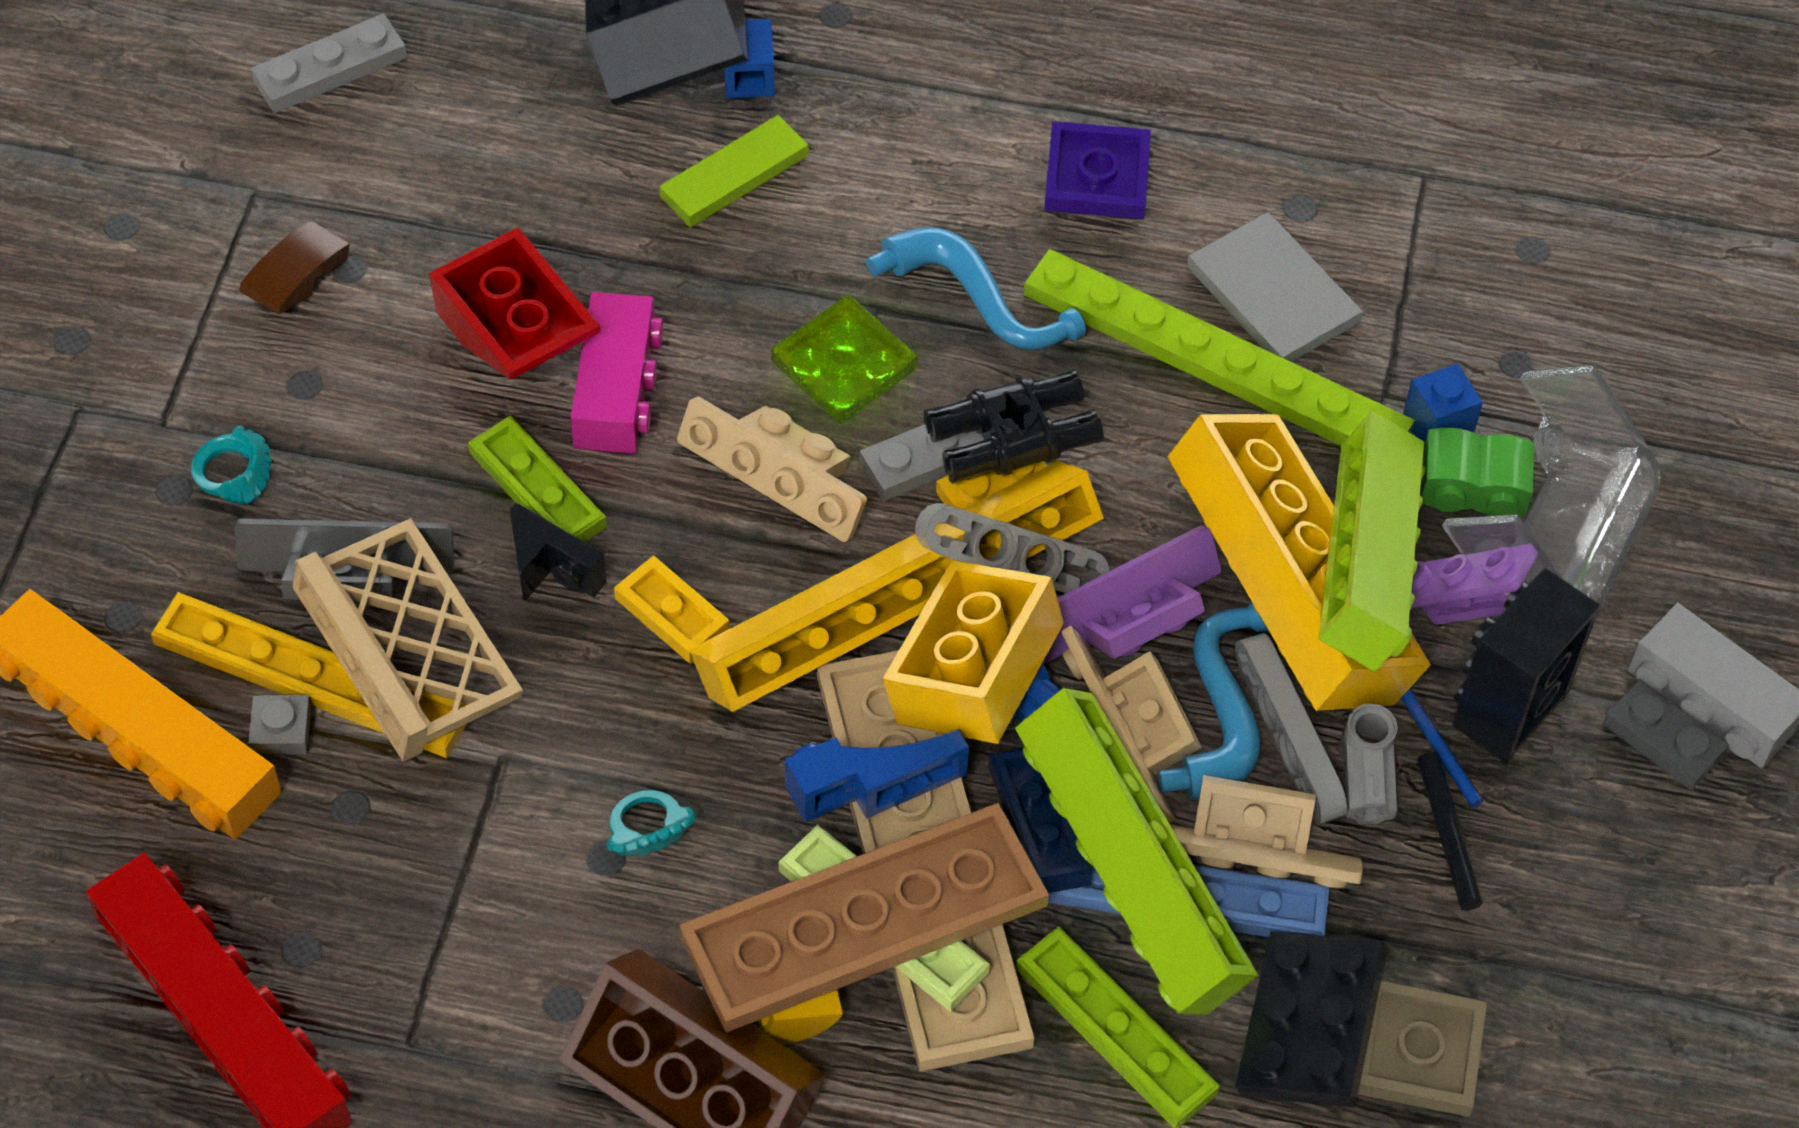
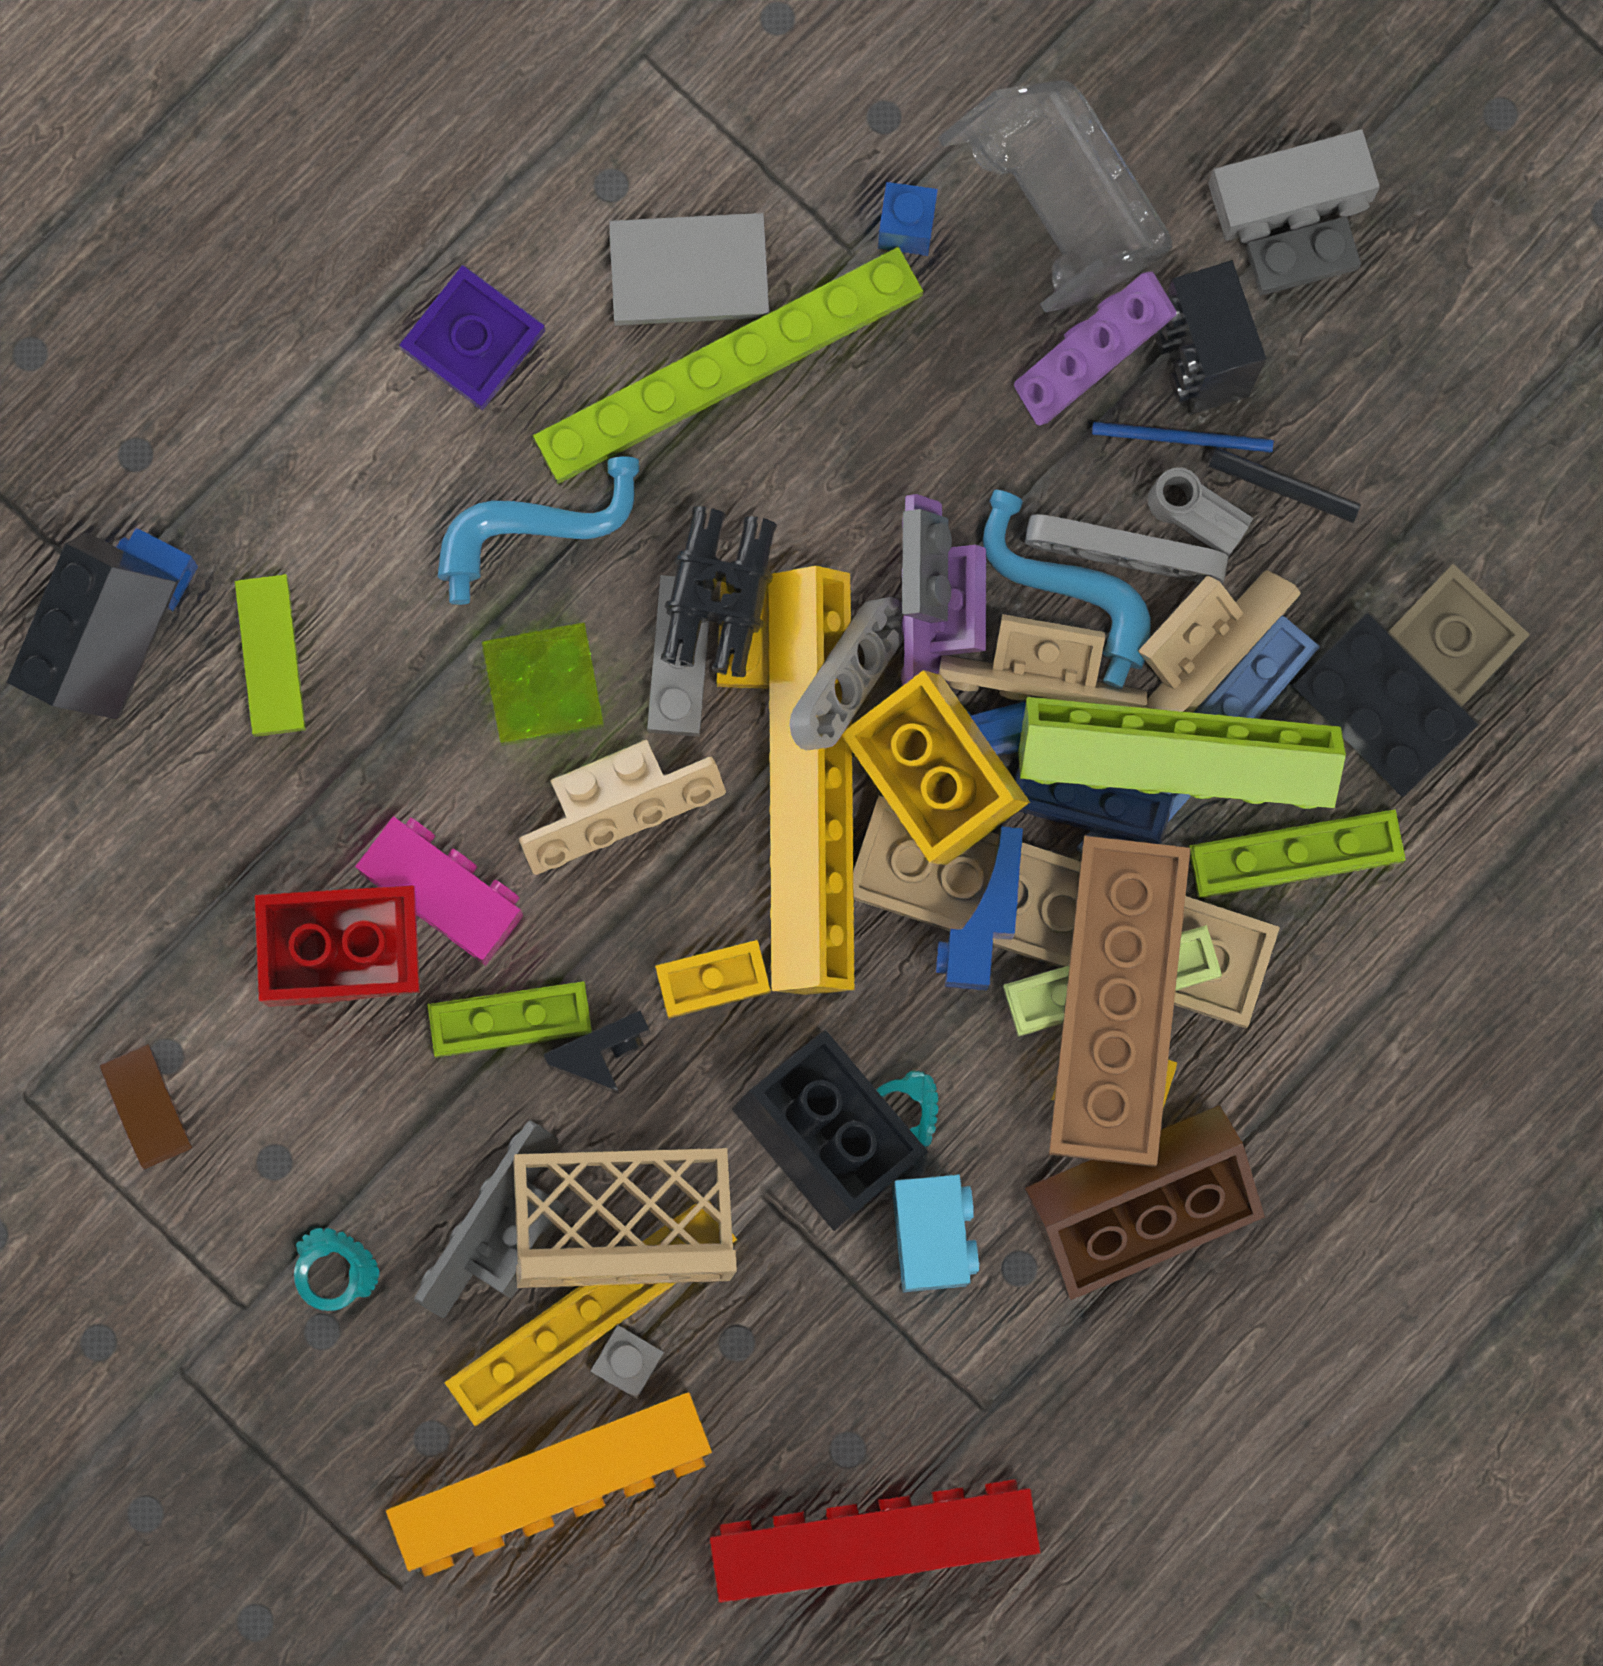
camera: 60 degrees left, 25 degrees up
(543, 885) = (933, 1233): none -> medium azure brick
(591, 760) = (829, 1129): none -> black slope
(1152, 566) = (925, 566): none -> dark grey plate
(1276, 539) = (992, 445): yellow brick -> none
(1373, 543) = (1026, 378): lime brick -> none
(1477, 472) = (984, 234): bright green brick -> none

